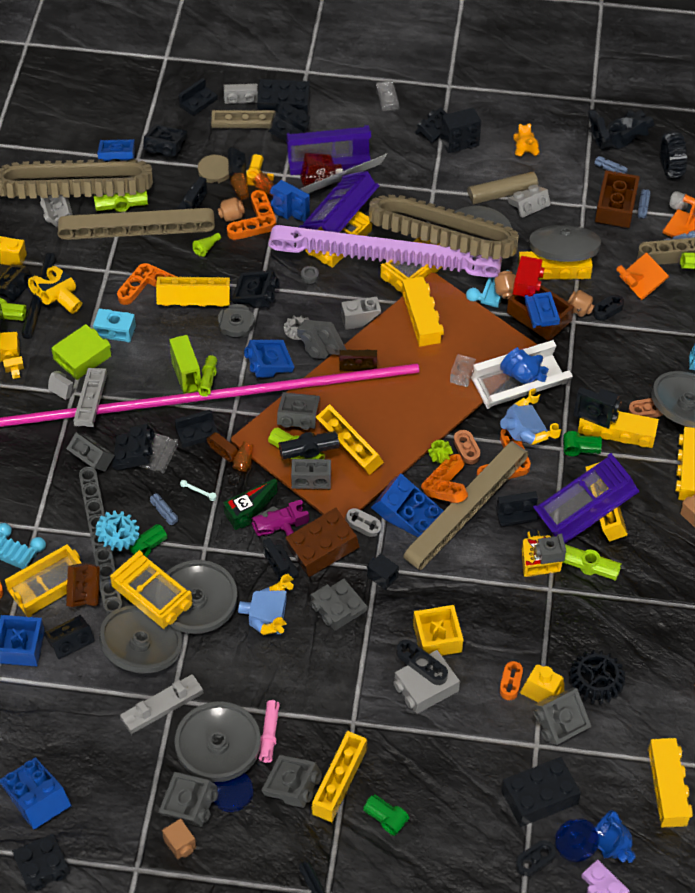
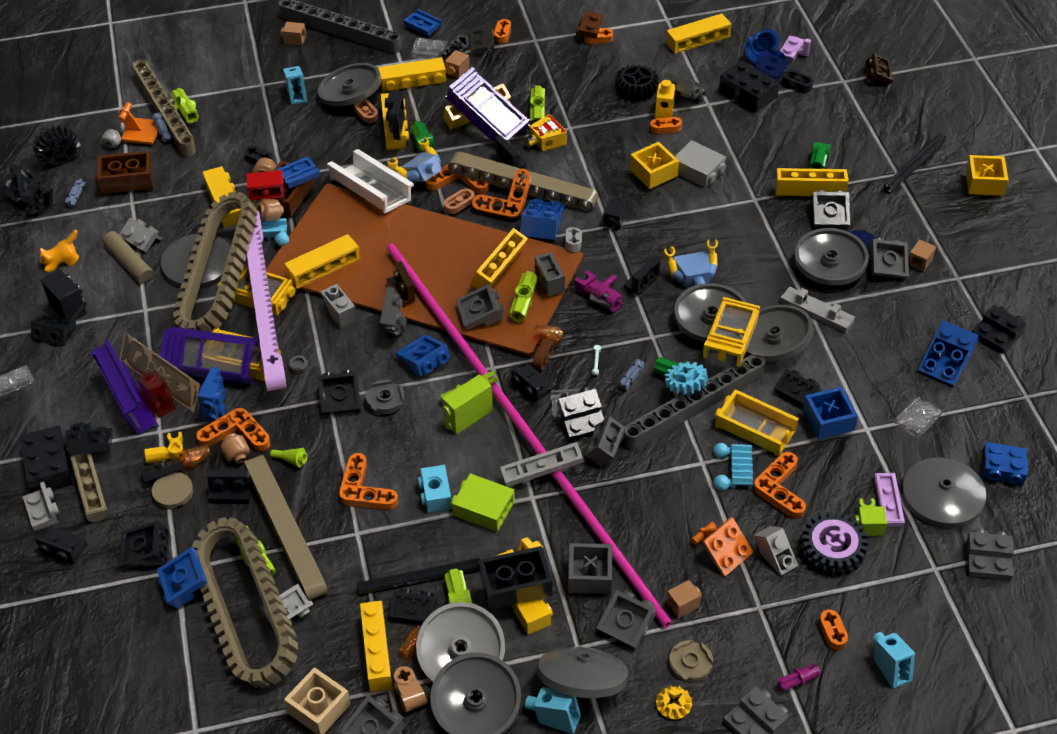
camera: 110 degrees left, 5 degrees down
(56, 288) = (415, 553): yellow connector -> none
(60, 385) = (533, 505): light grey tile -> none
(82, 584) = (751, 386): reddish brown bracket -> none
(193, 291) = (366, 436): yellow brick -> none
(249, 504) = (596, 314): dark green slope -> none
(263, 182) = (187, 432): clear orange cone -> none
(268, 737) = (790, 239): bright pink pin -> none
(290, 326) = (371, 356): light grey gear -> none
(308, 445) = (527, 274): black piece -> none
(322, 542) = (611, 252): reddish brown brick -> none
(338, 604) = (659, 233): dark grey plate -> none
(419, 653) = (692, 165): black beam -> none
(440, 451) = (474, 212): lime gear -> none
(462, 370) = (382, 216): clear brick -> none
(524, 367) = (369, 169): blue helmet -> none
(550, 549) = (547, 115): dark grey brick -> none
(565, 243) = (197, 189): dark grey dish -> none
(643, 276) = (217, 138): orange plate -> none

